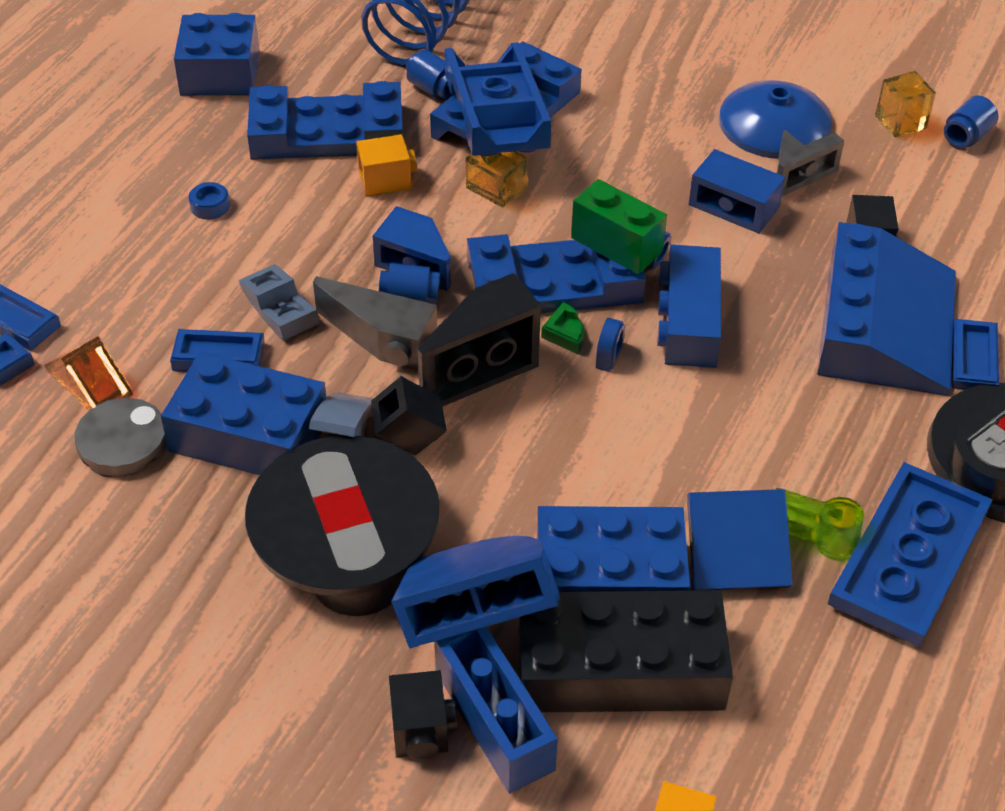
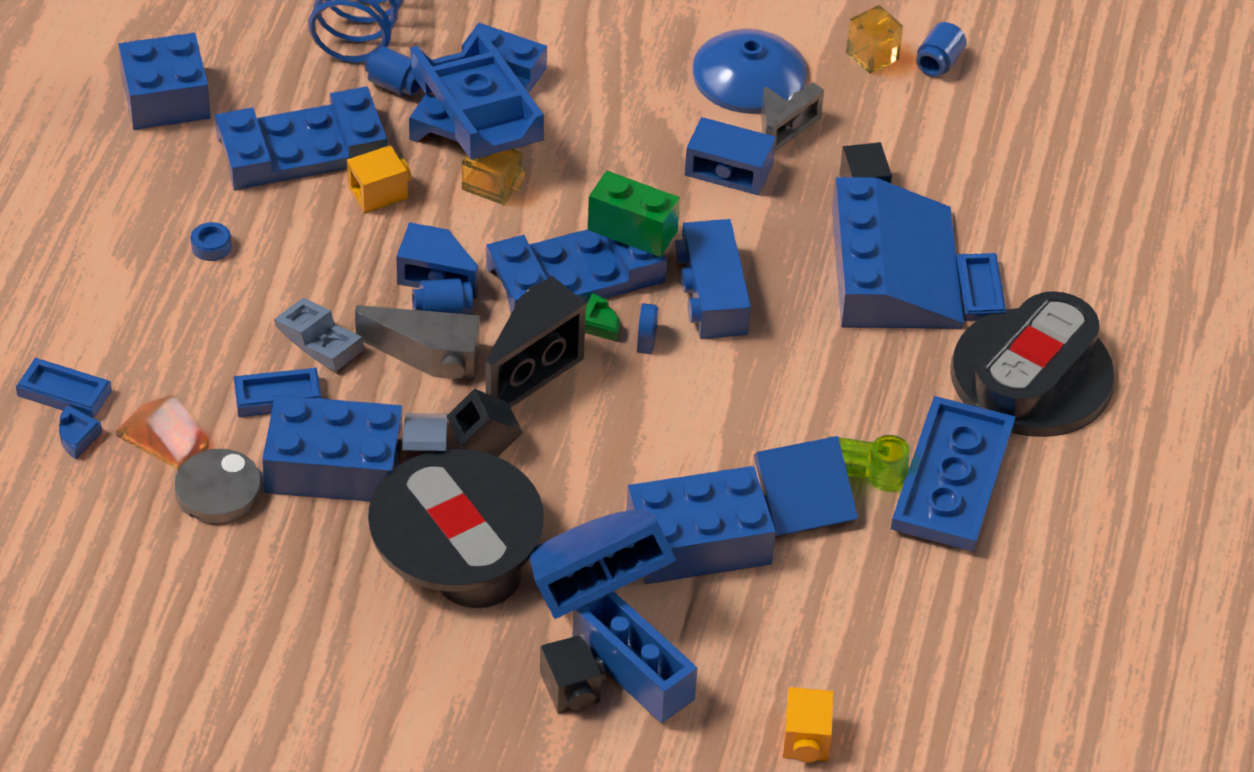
camera: 15 degrees left, 0 degrees up
(627, 652) = (734, 594): black brick -> none

